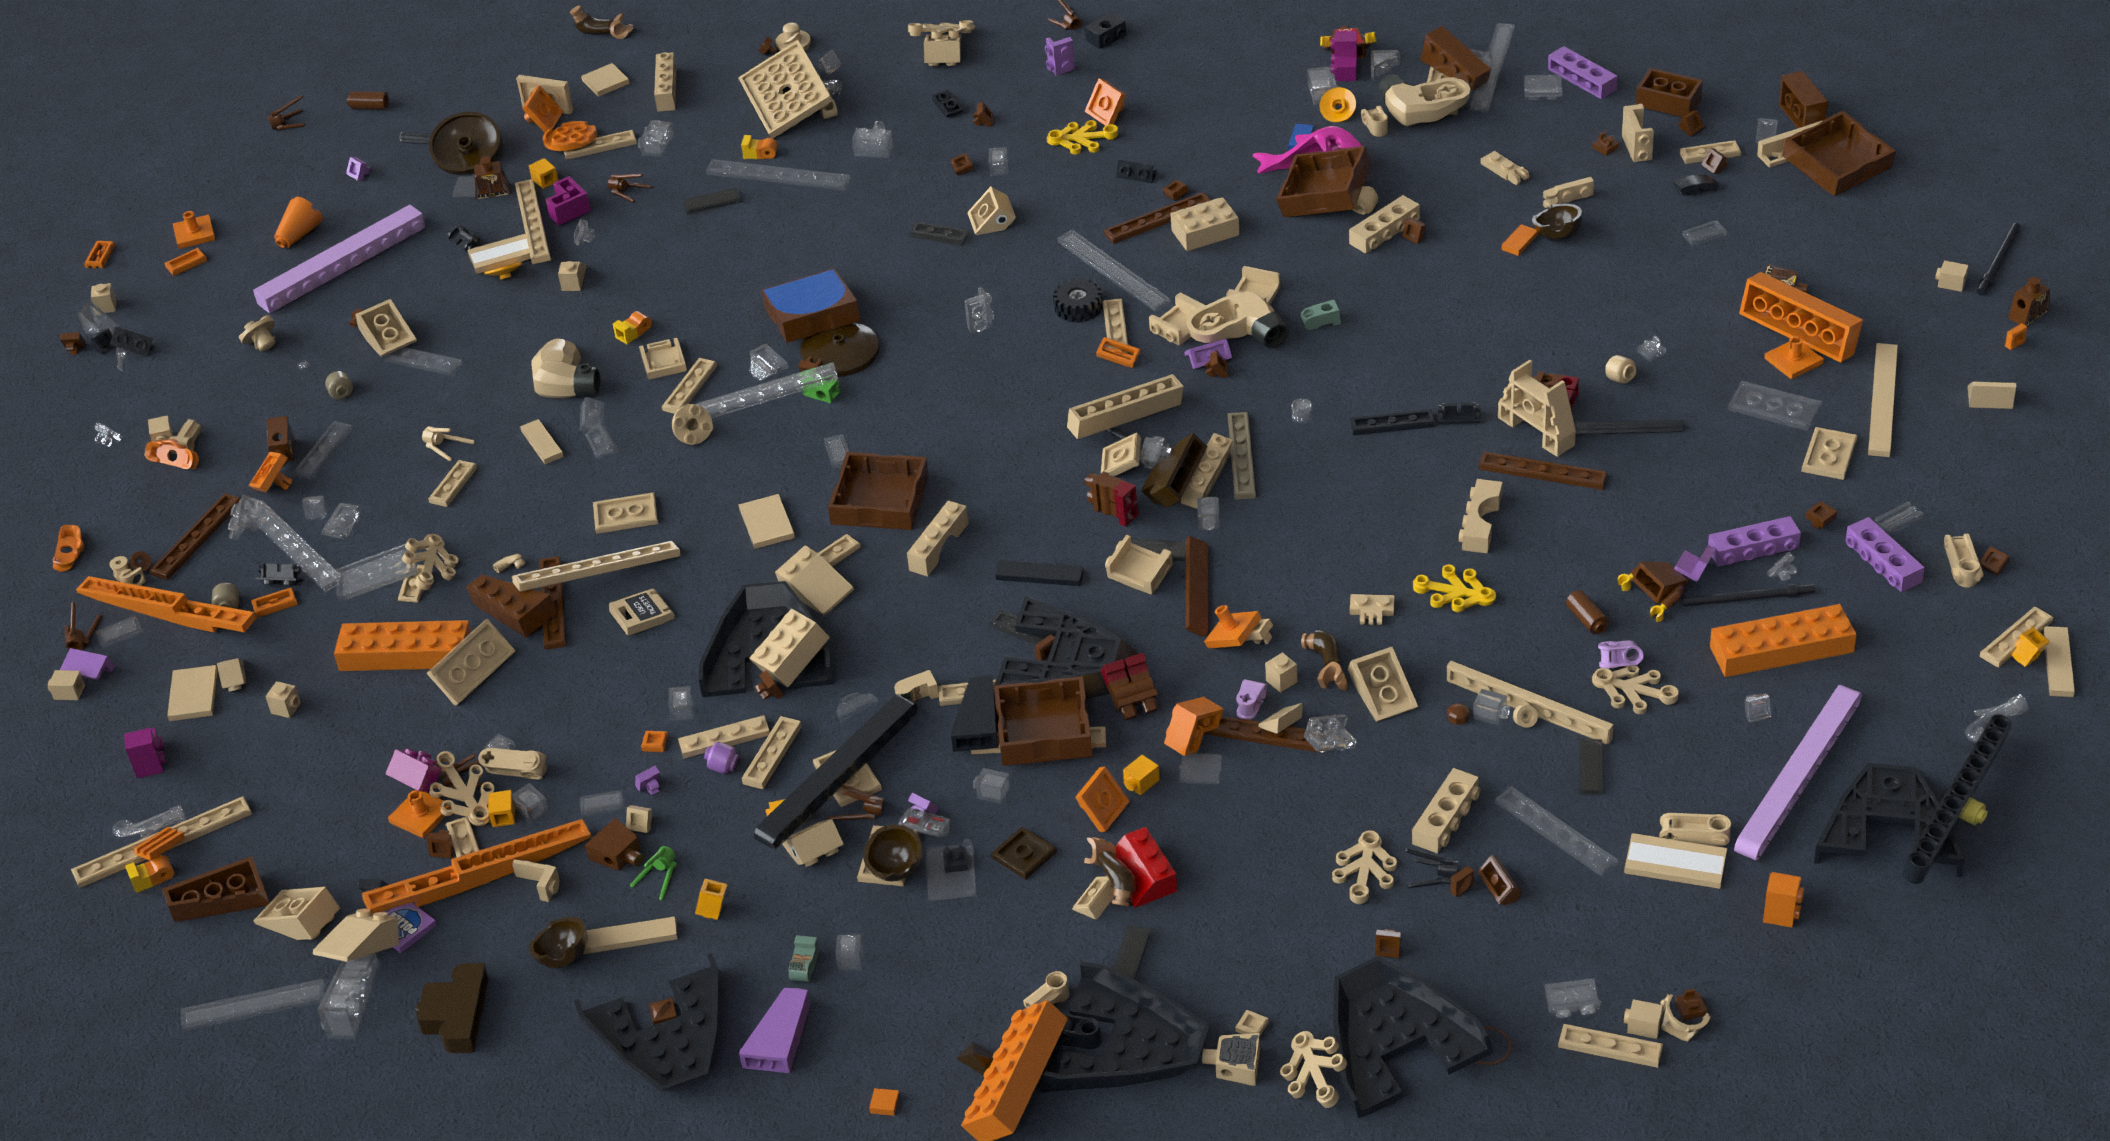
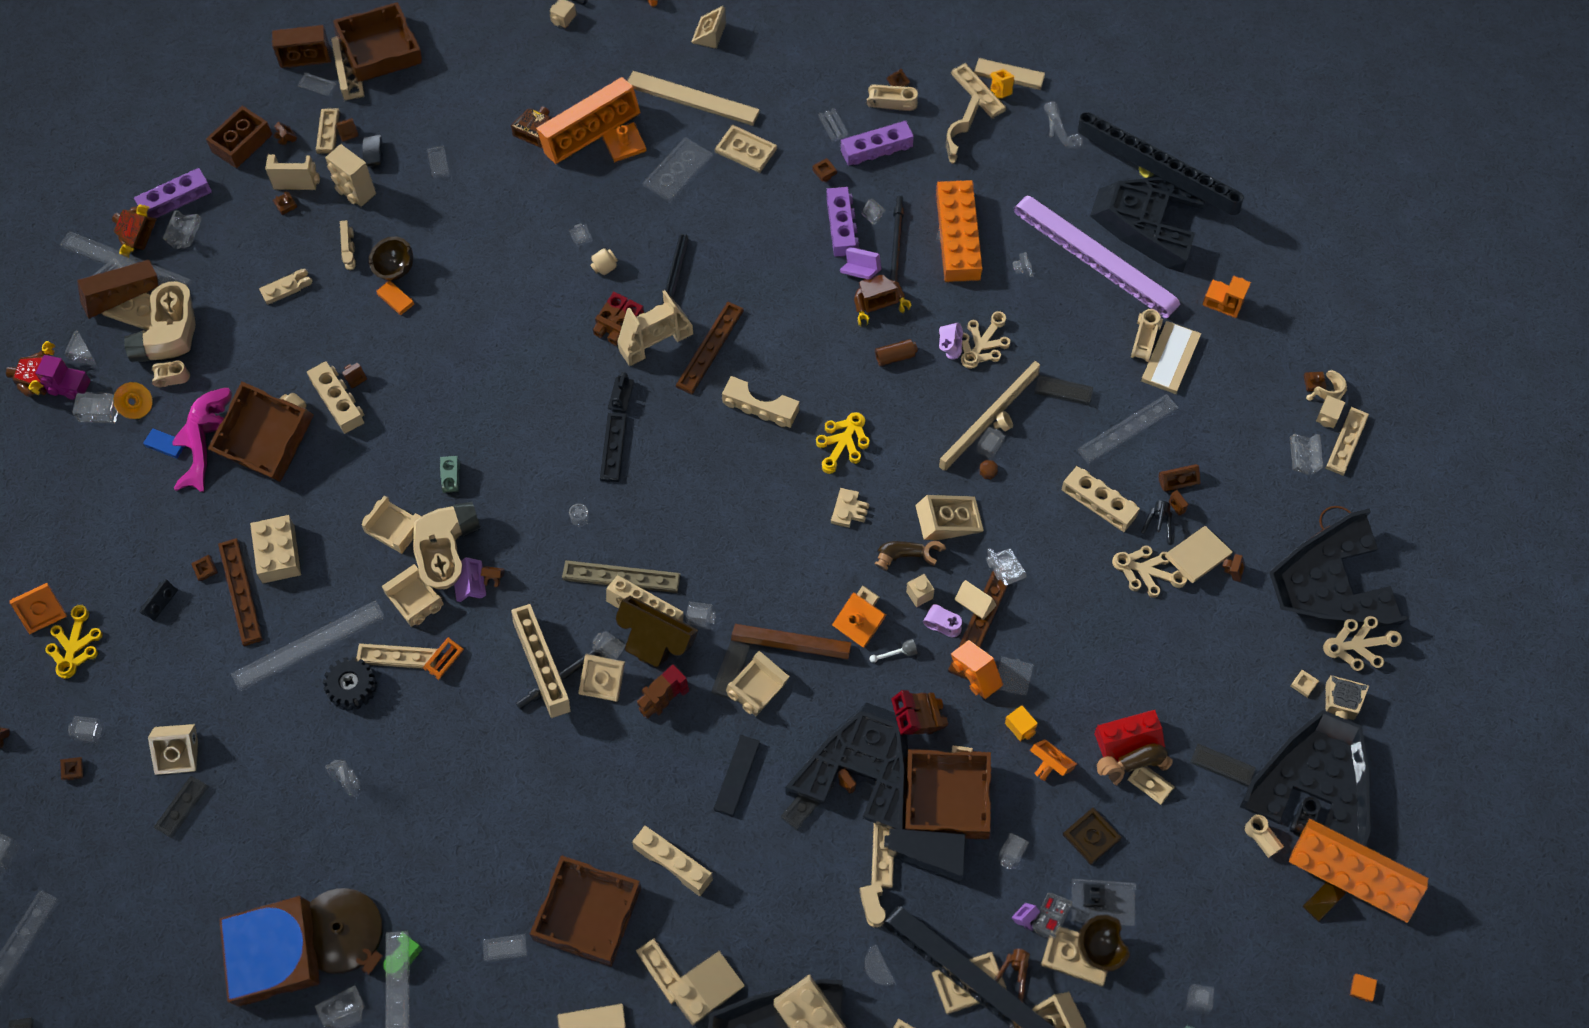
camera: 85 degrees left, 20 degrees up
(1211, 676) = (908, 648): none -> hinge
(1396, 906) = (1198, 554): none -> tan tile
(1526, 57) = (133, 228): none -> reddish brown torso
(1644, 165) = (350, 175): none -> tan brick
(1952, 626) = (961, 126): none -> tan piece

